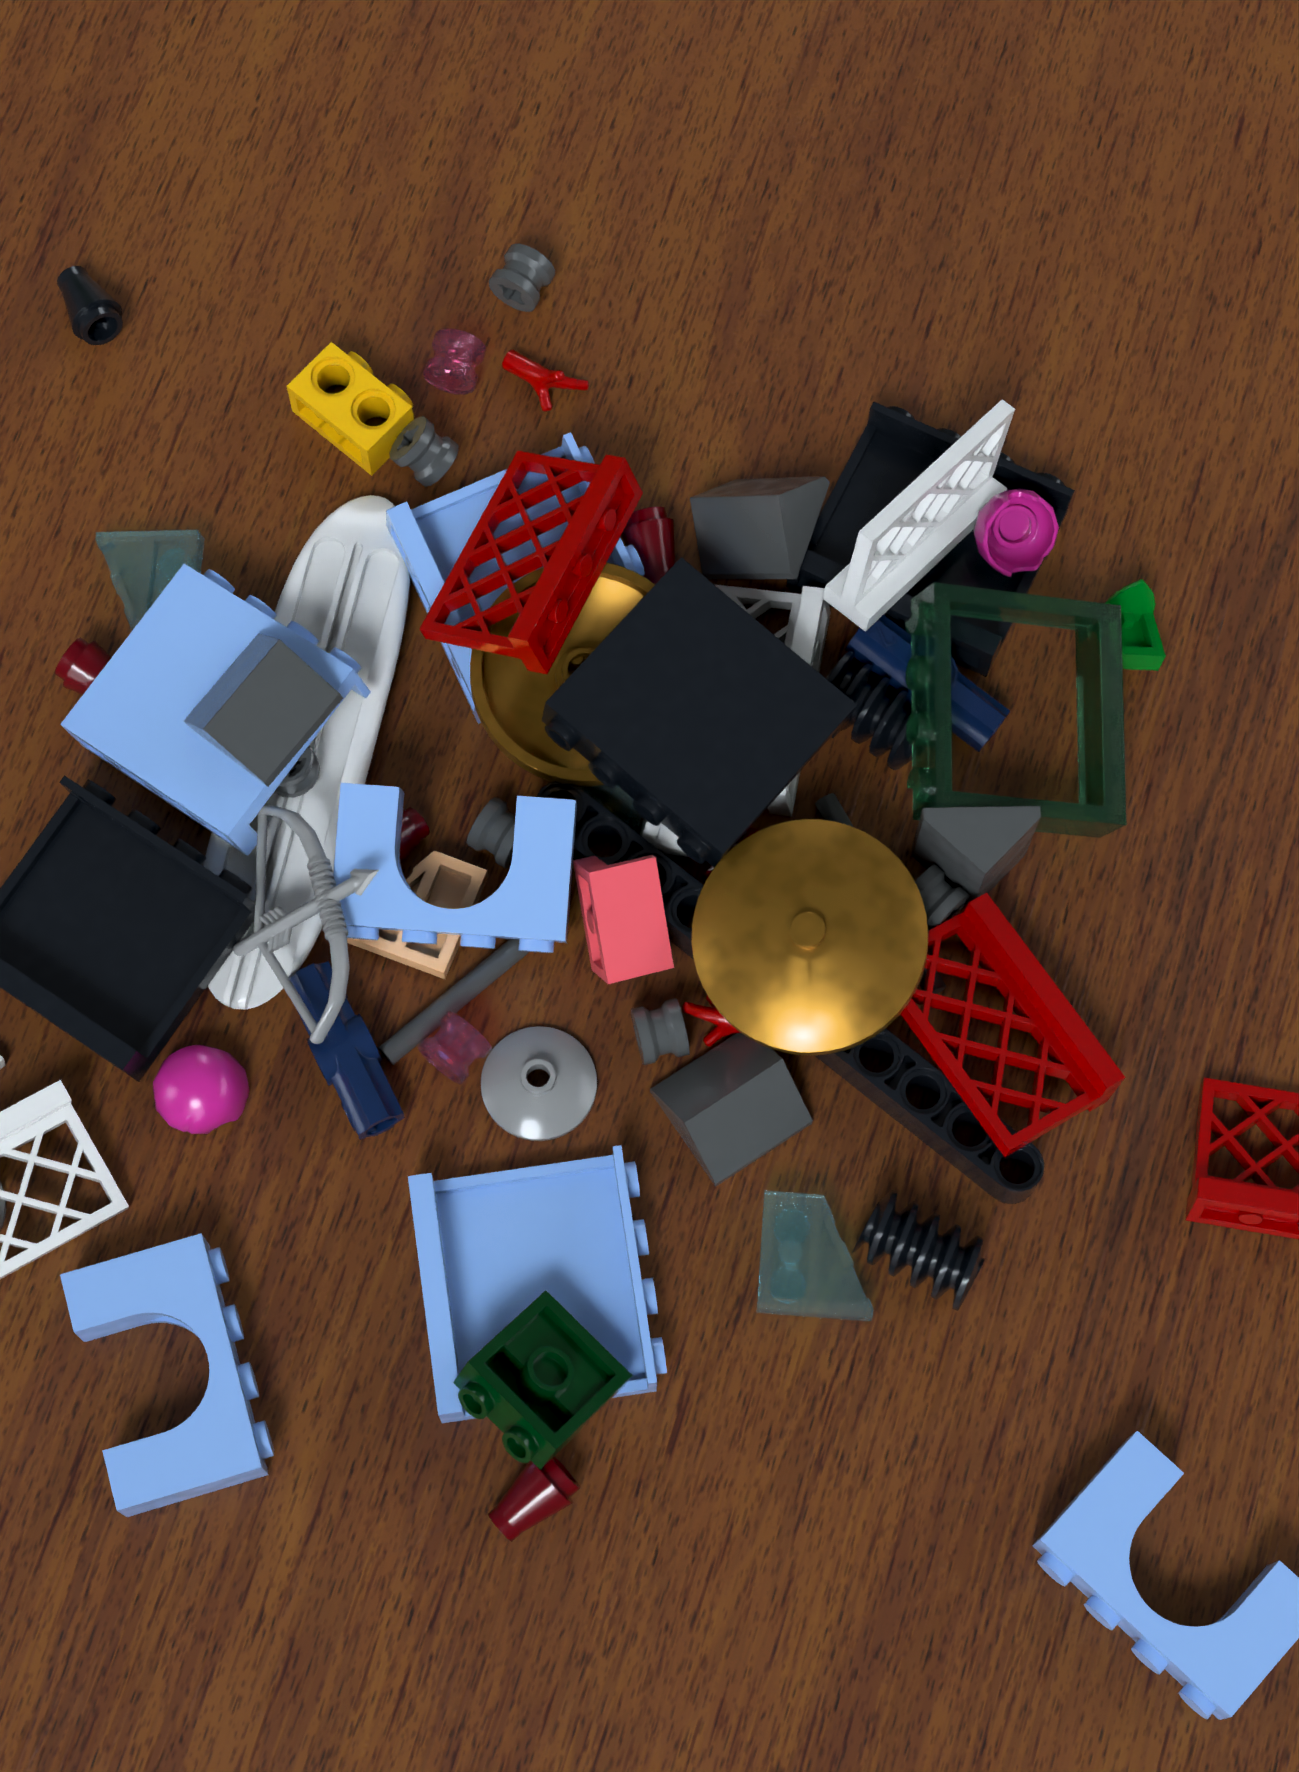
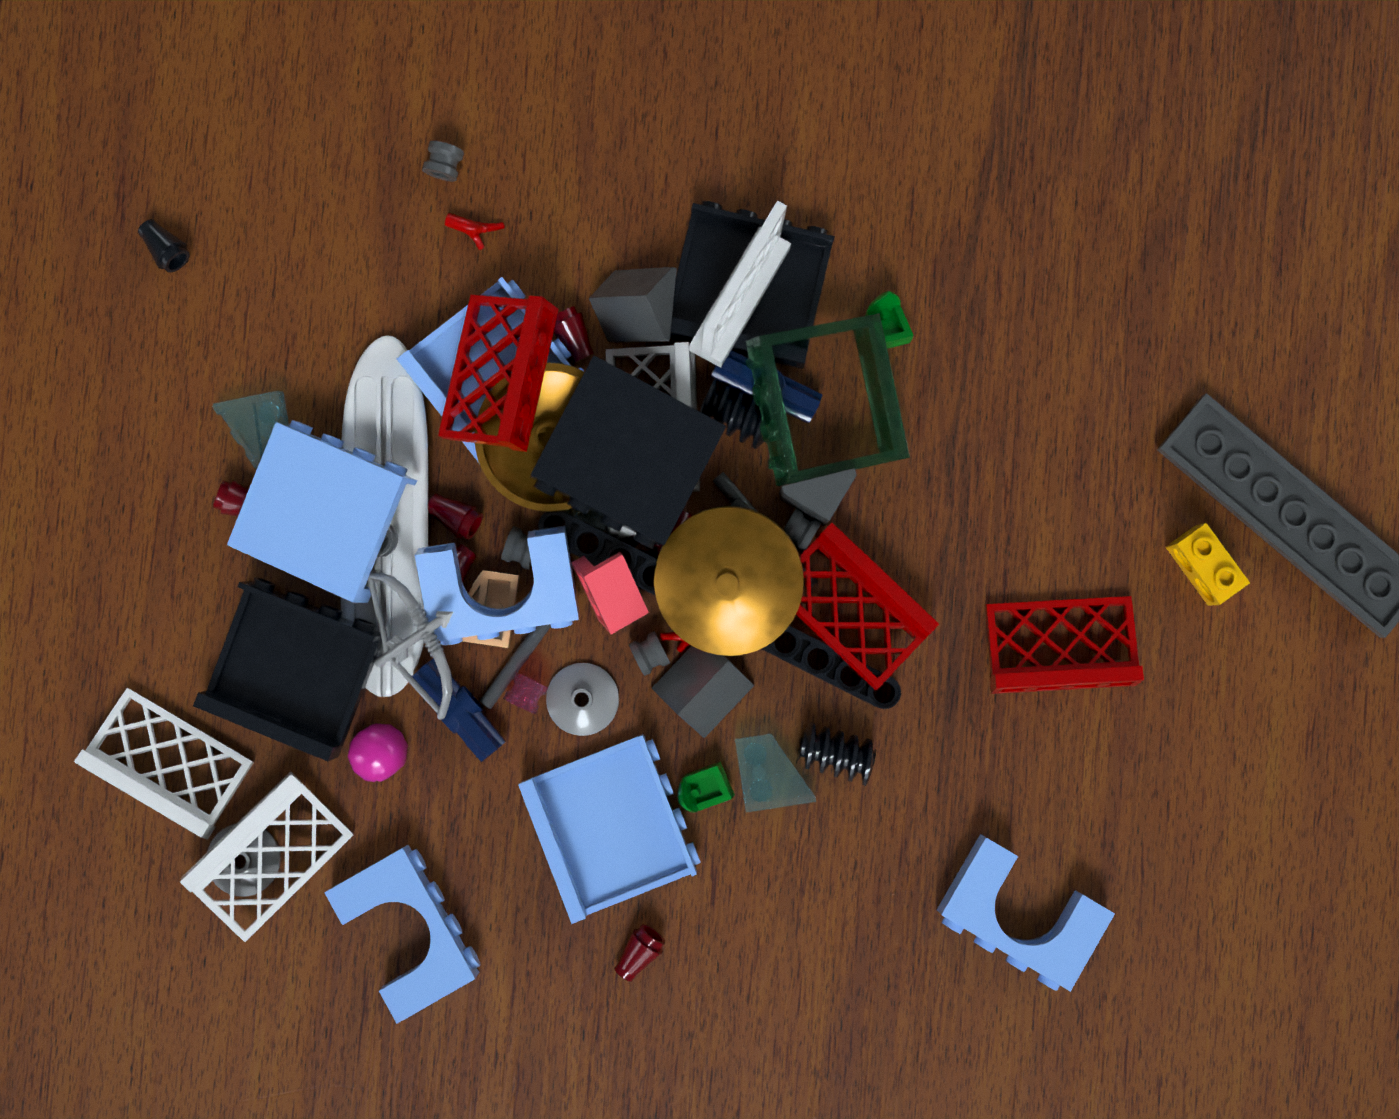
camera: 15 degrees left, 15 degrees up
(264, 708) = (352, 516): dark grey slope -> none
(343, 414) = (351, 285): yellow brick -> none
(415, 768) = (456, 516): none -> dark red cone
(424, 451) = (409, 301): dark grey wheel -> none
(454, 361) = (413, 231): clear pink wheel -> none
(540, 1381) = (627, 890): dark green plate -> none
(699, 1257) = (704, 788): none -> green plate
(1015, 531) = (802, 274): dark pink hair -> none

